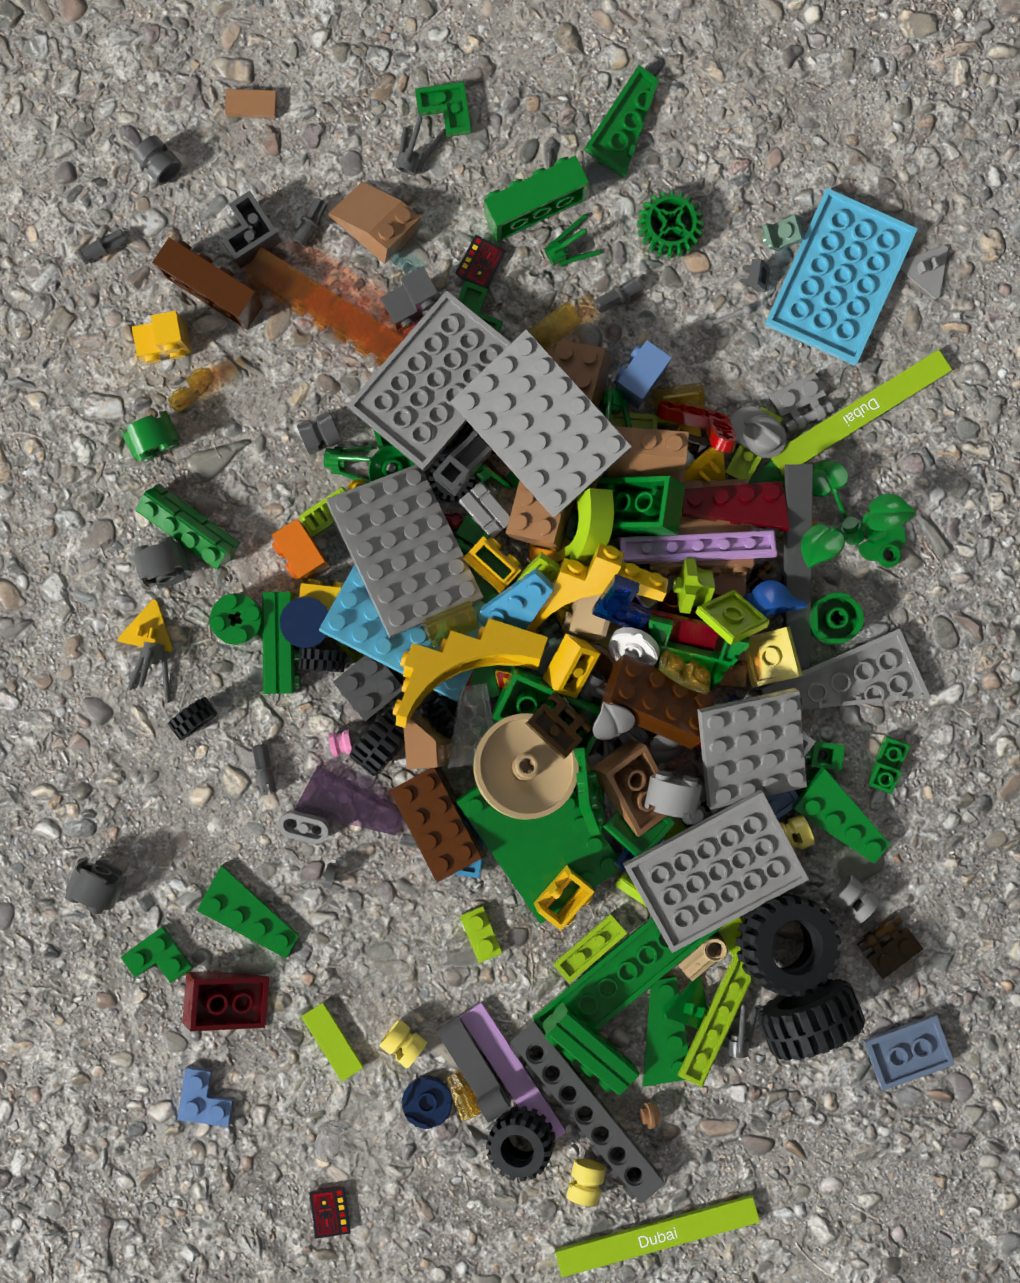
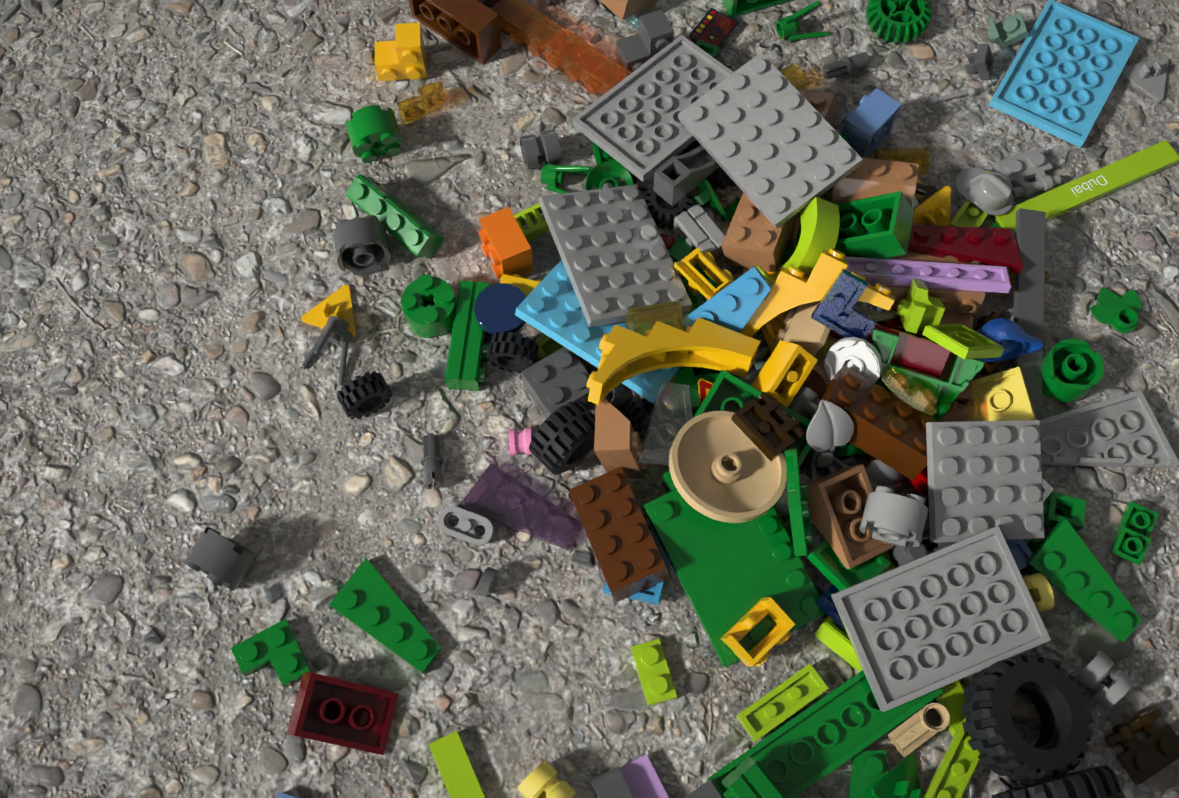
camera: 10 degrees right, 20 degrees down
(716, 424) = (938, 177): red beam -> none
(822, 543) = (1058, 285): green plant -> none

